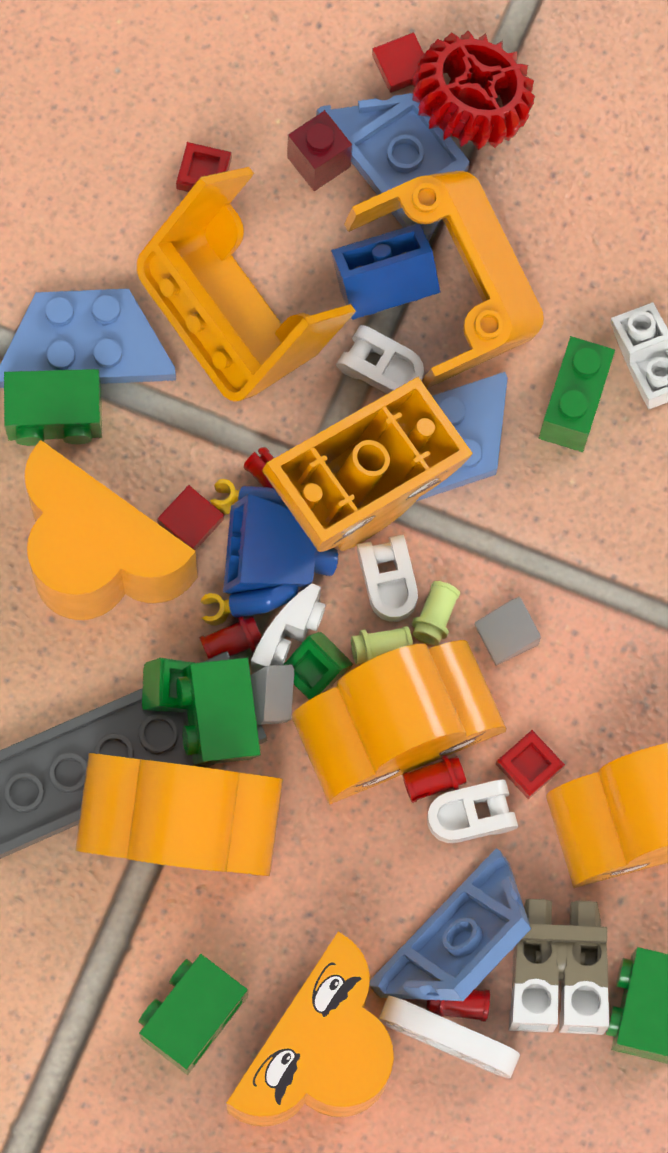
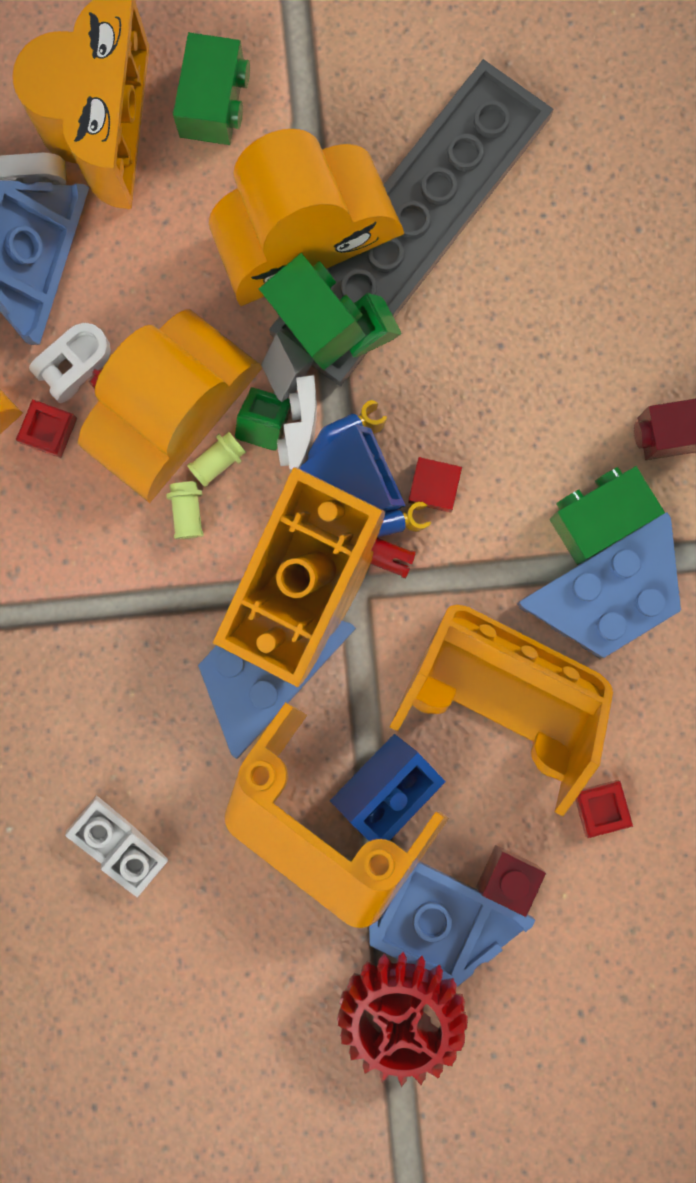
camera: 160 degrees right, 10 degrees up
(96, 545) = (504, 403): light orange brick -> none
(233, 638) = (343, 397): red pin -> none
(391, 593) = (229, 509): white plate -> none
(393, 369) = (329, 708): white plate -> none
(398, 61) = (488, 1016): red tile -> none
(508, 631) = (118, 527): light grey slope -> none
(576, 394) = (159, 769): green brick -> none

